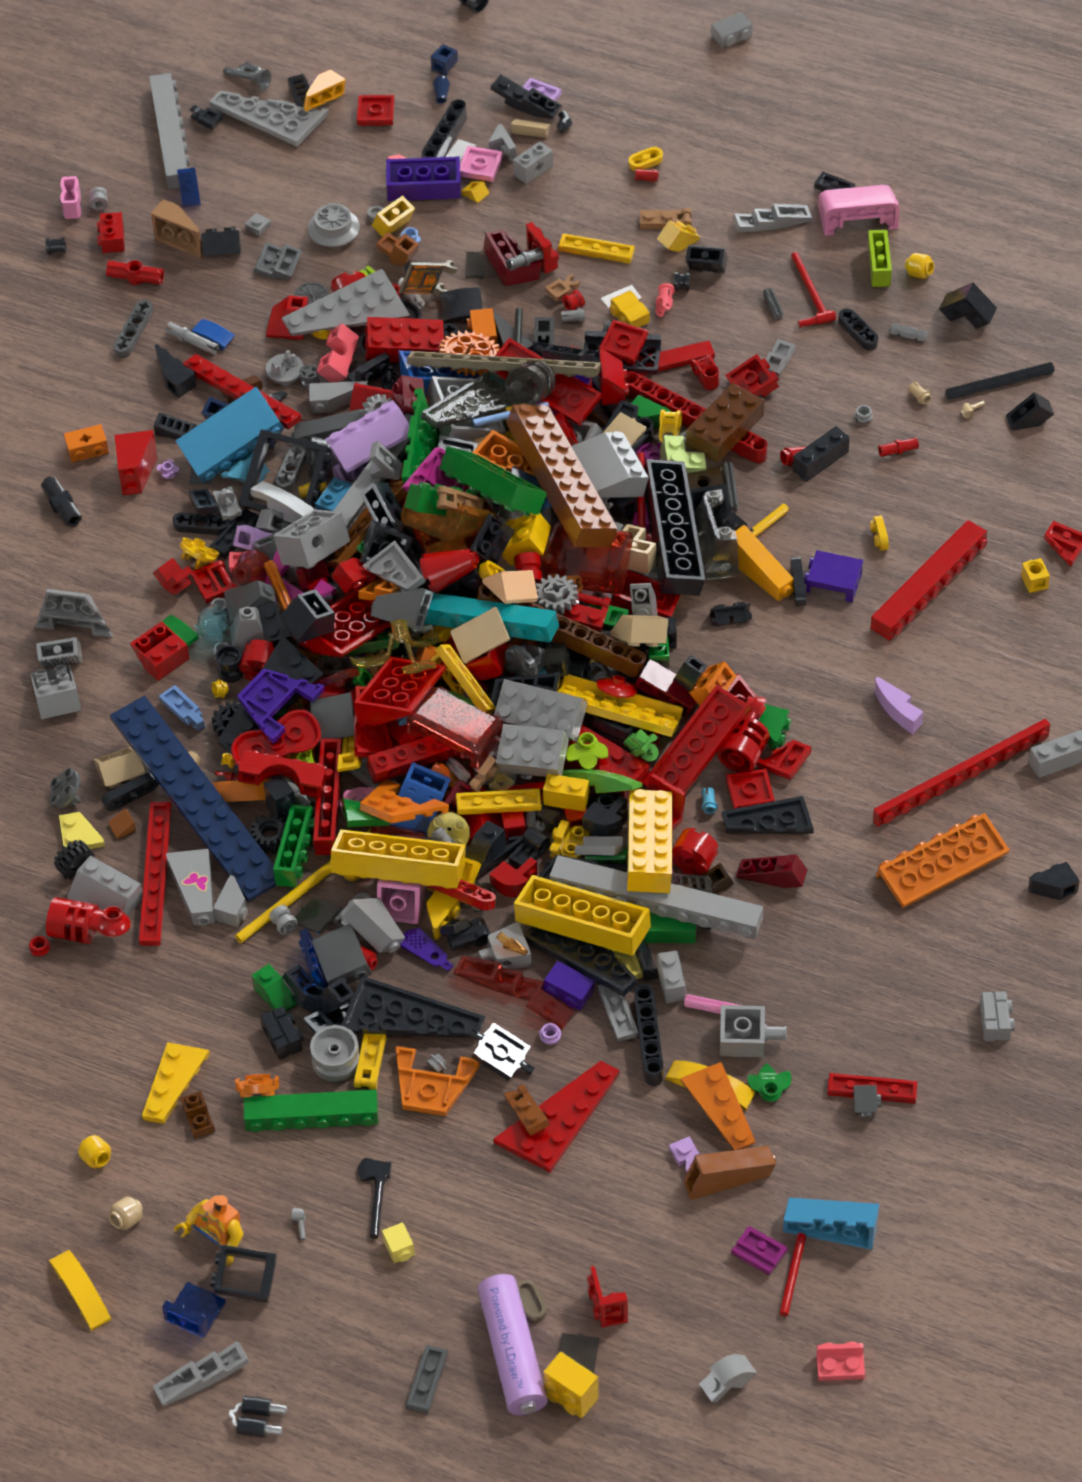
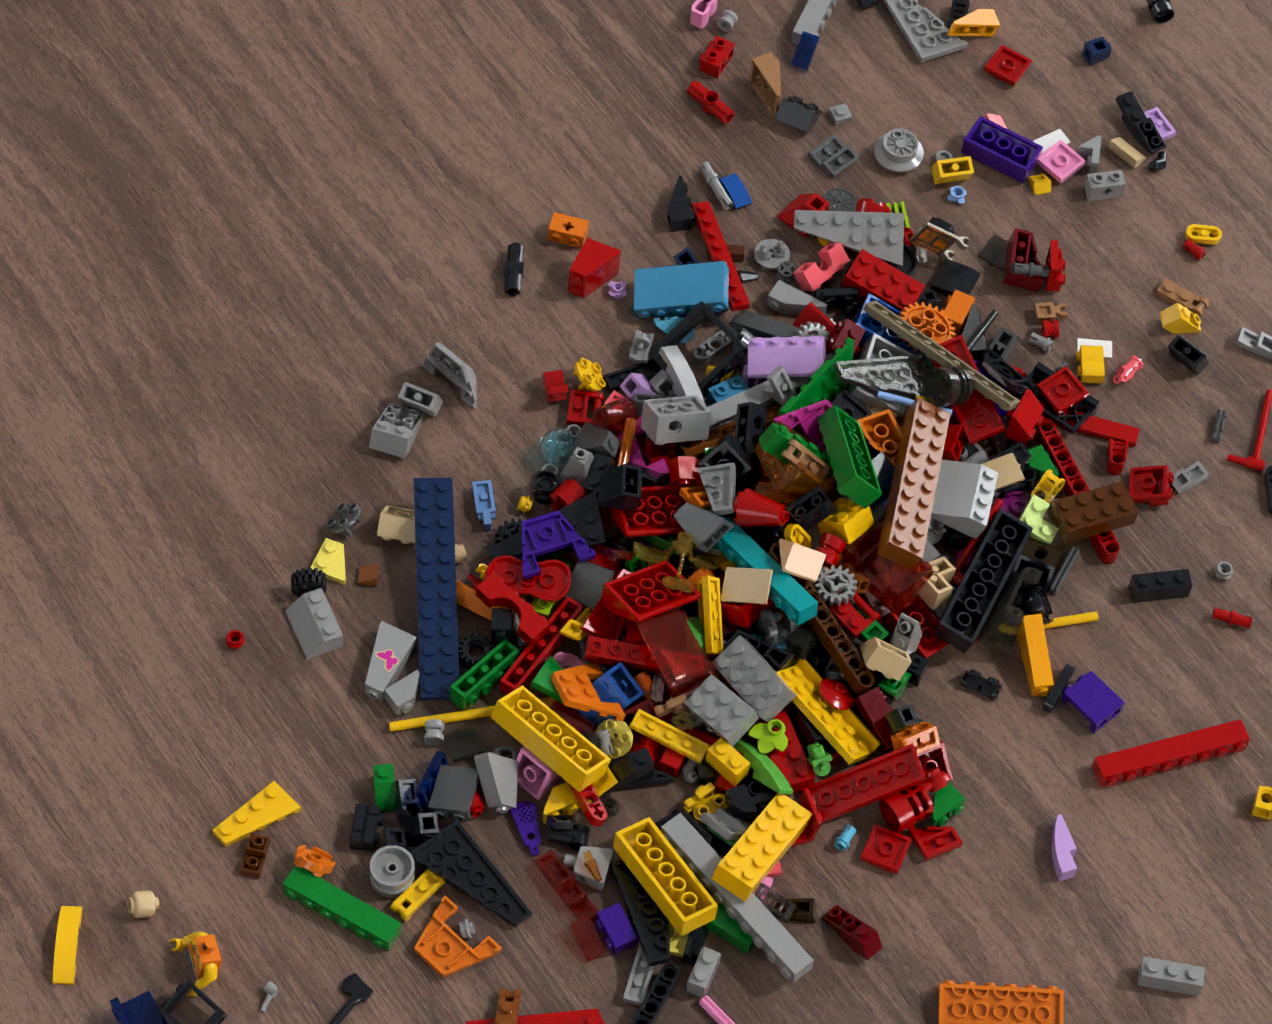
camera: 25 degrees right, 5 degrees up
(56, 245) = (664, 43): black bush -> none
(79, 920) = (278, 639): red cylinder -> none
(94, 1151) = (155, 838): yellow head -> none
(120, 796) = (391, 550): black beam -> none
(136, 329) = (676, 150): dark grey beam -> none
(155, 874) = (364, 632): red plate -> none
(160, 651) = (499, 444): red slope -> none
(163, 424) = (641, 246): black slope -> none
(181, 629) = (526, 435): green slope -> none
(186, 526) = (608, 344): black beam -> none
(202, 502) = (623, 334): black plate -> none
(399, 250) = (936, 201): dark orange brick -> none
(441, 89) = (1075, 76): dark blue cone -> none
(446, 130) = (1051, 117): black beam -> none
(500, 1051) = (522, 951): plate -> none
(511, 881) = (635, 810): red brick -> none
(532, 845) = (669, 792): black plate -> none
(550, 1028) = (574, 954): lavender plate -> none
(596, 248) = (1105, 291): yellow tile -> none
(682, 281) = (1154, 362): black wheel -> none
(694, 852) = (797, 876): red brick -> none
(778, 817) = (886, 884): black wing -> none
(787, 453) = (1131, 569): red cone -> none
(881, 537) = (1160, 679): yellow plate -> none
(956, 775) = (1079, 941): red plate -> none

